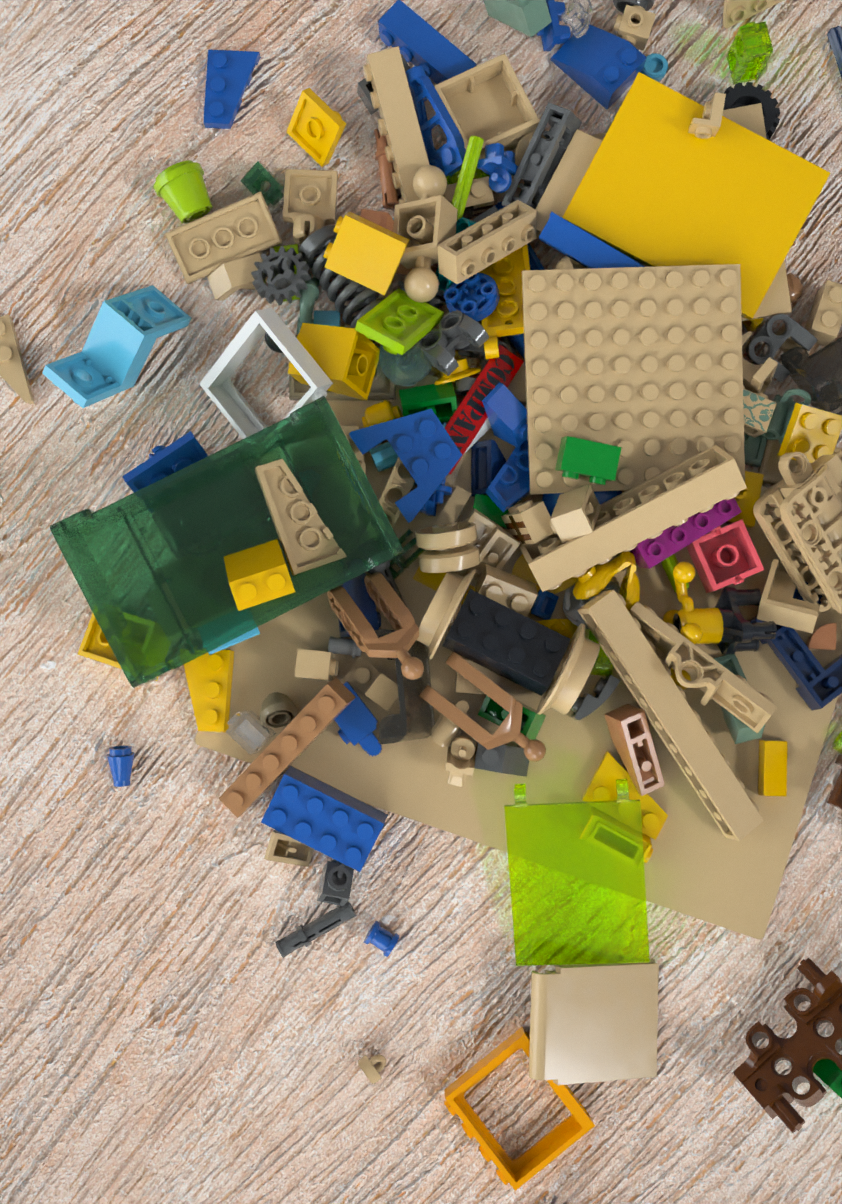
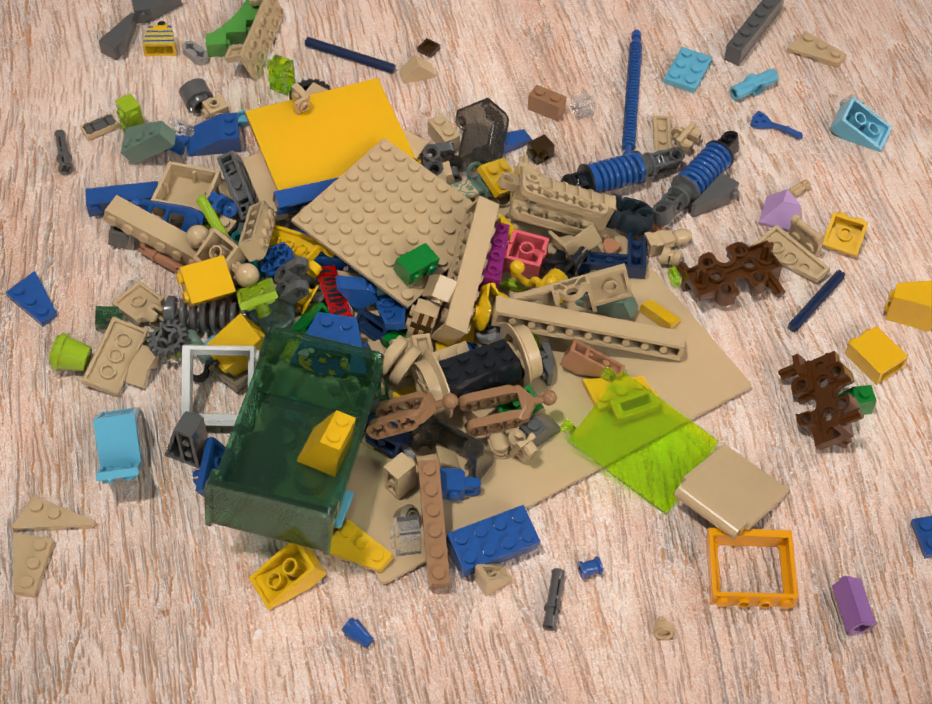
camera: 50 degrees left, 30 degrees down
(180, 413) = (188, 440): none -> dark grey wedge
(299, 527) = (306, 408): tan wing -> none
(316, 127) = (107, 270): yellow tile -> none
(335, 883) = (536, 563): dark grey brick -> none

